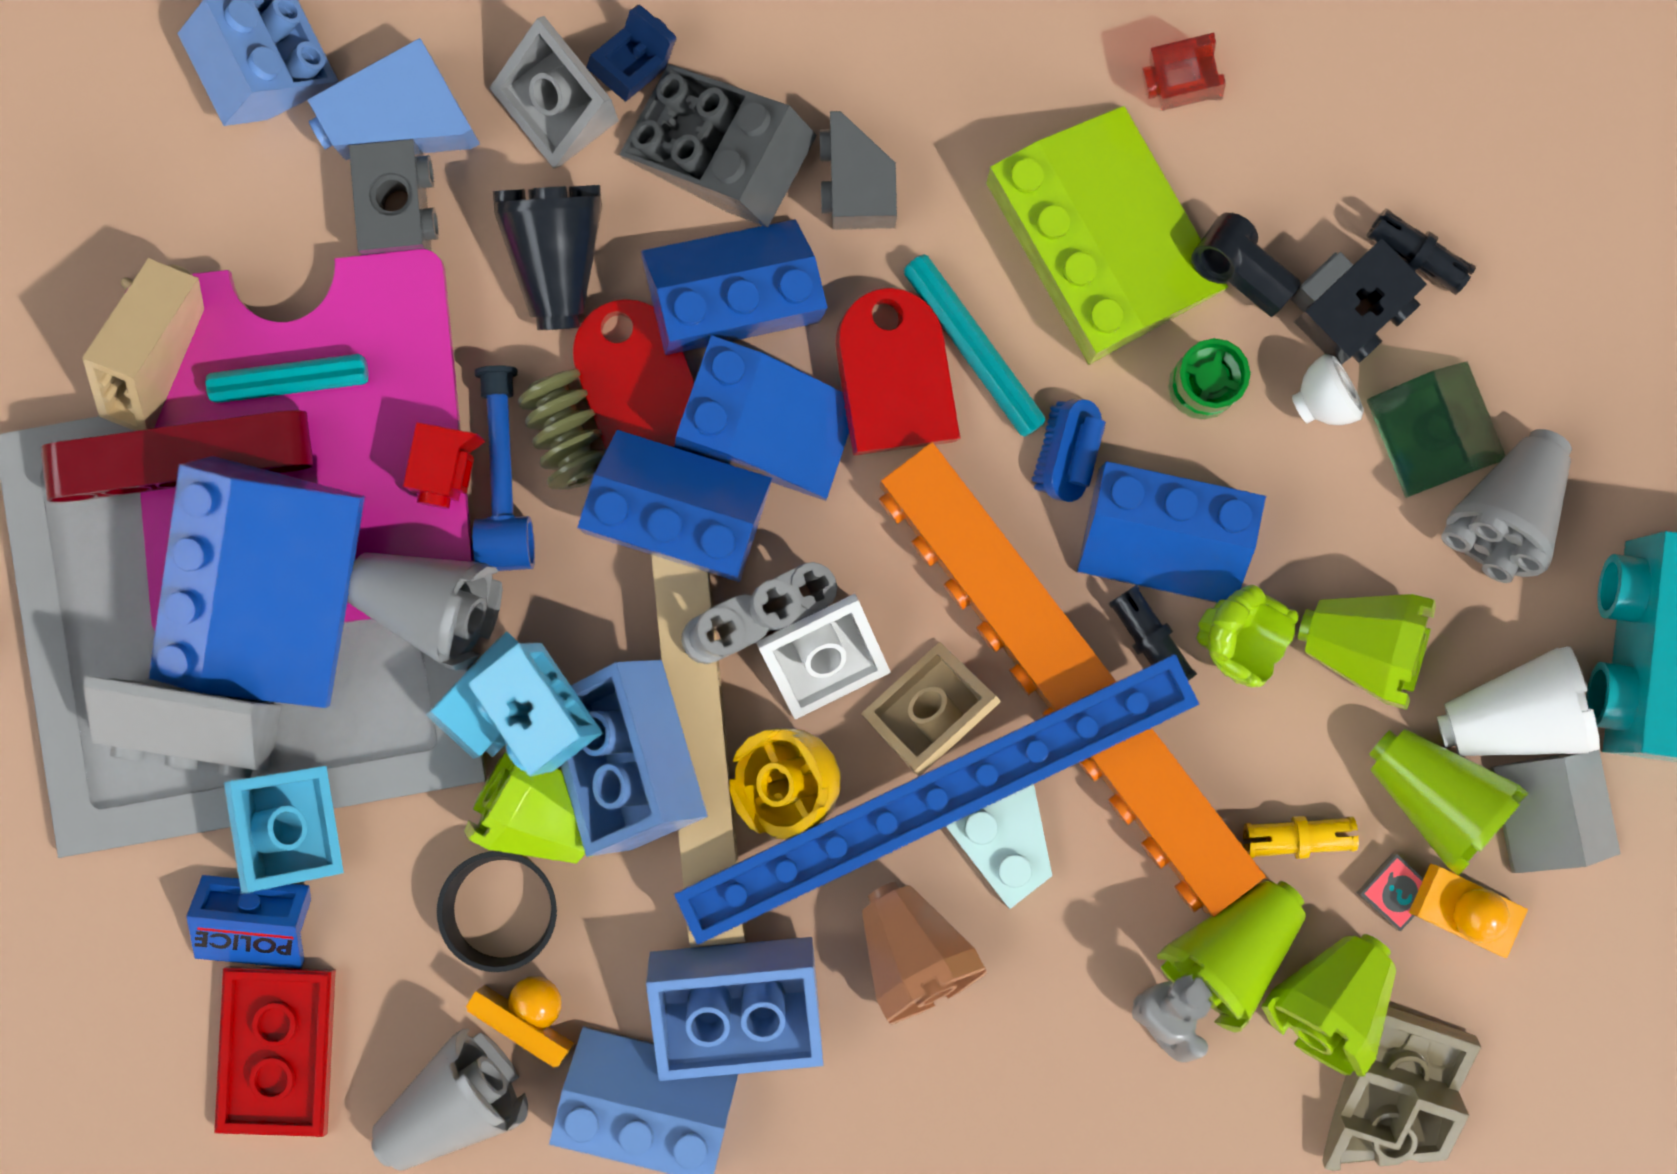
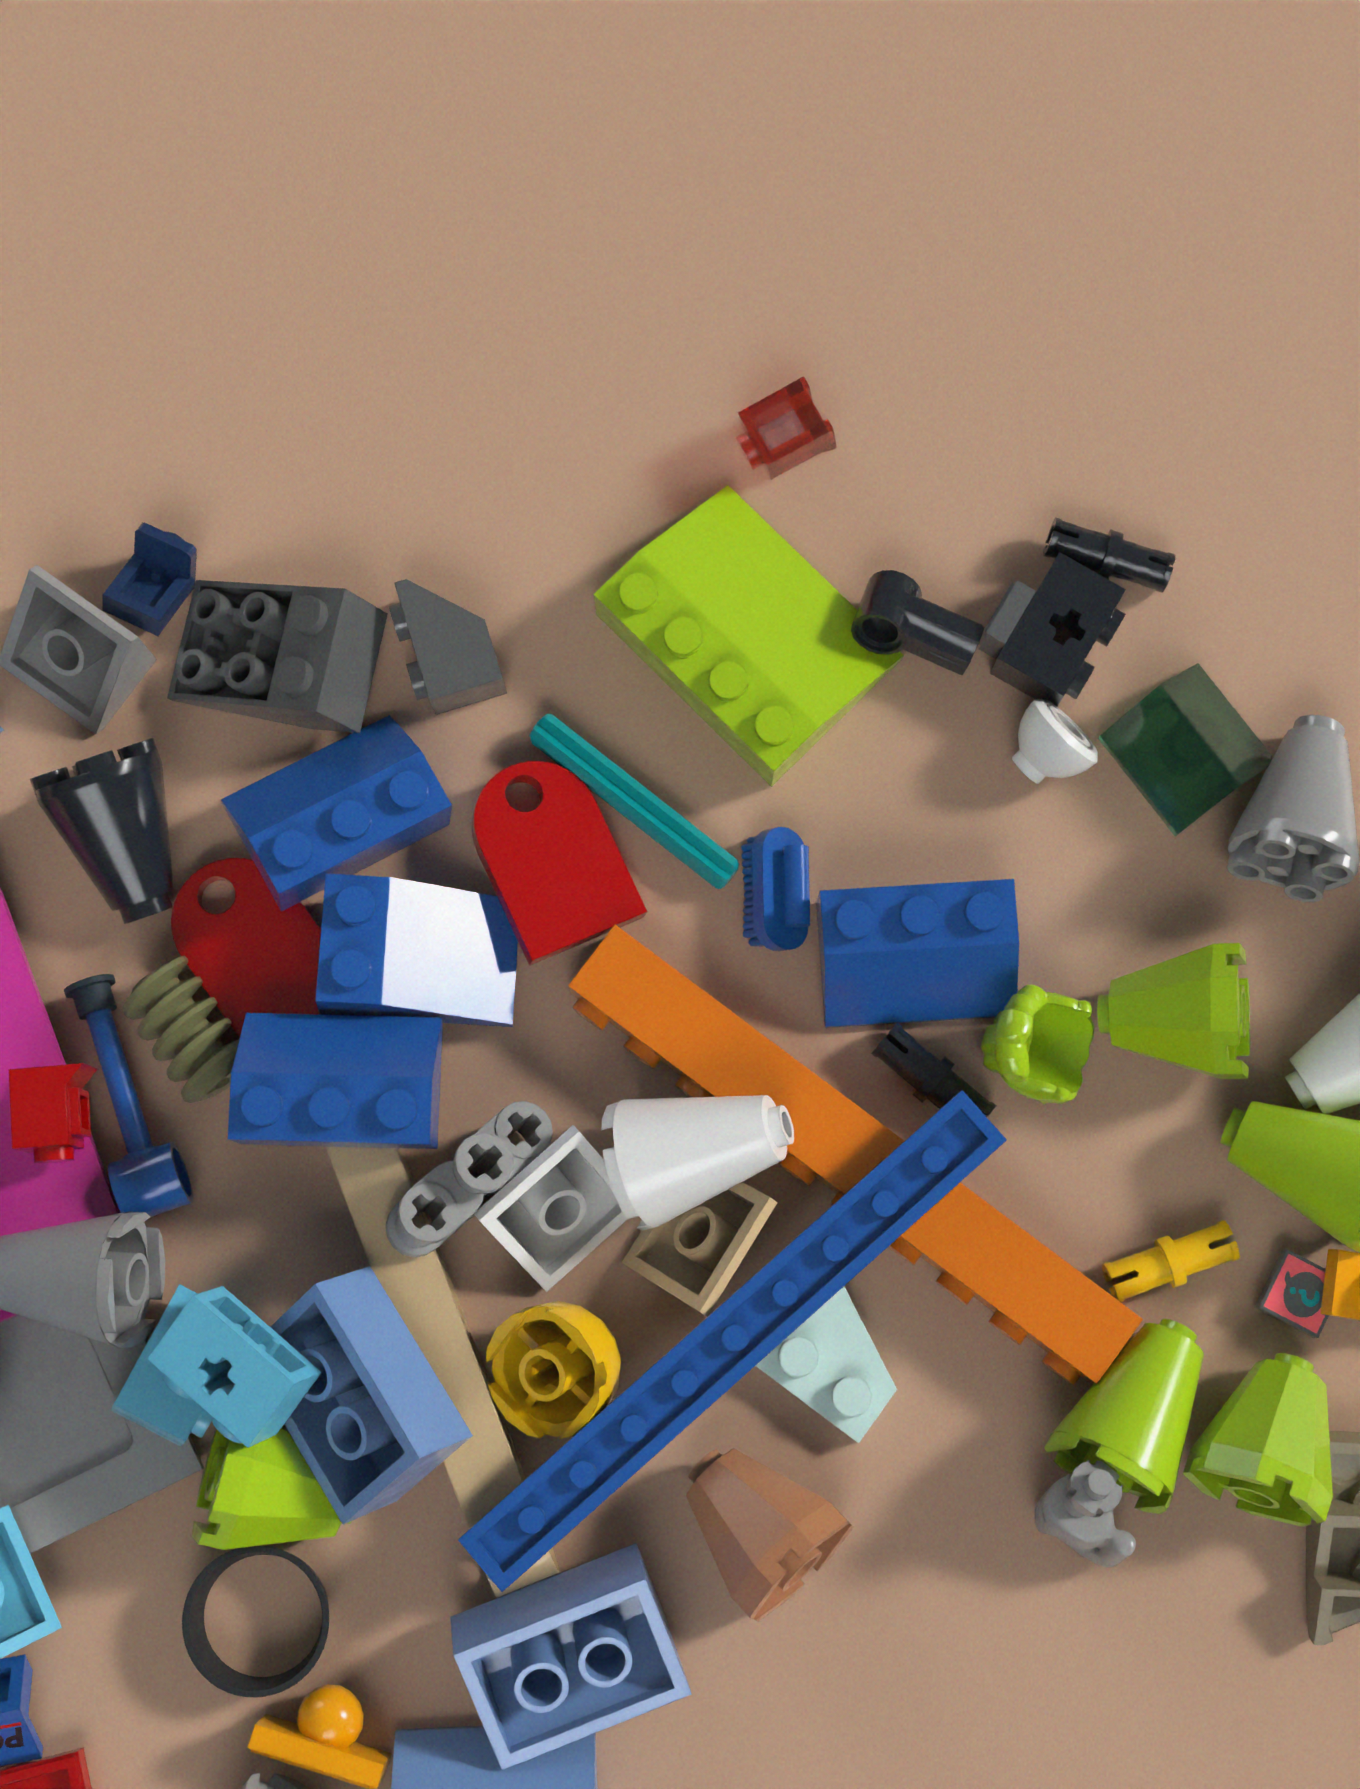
camera: 15 degrees left, 5 degrees down
(942, 640) = (689, 1150): none -> white cone
(1209, 378) = (911, 764): green wheel -> none

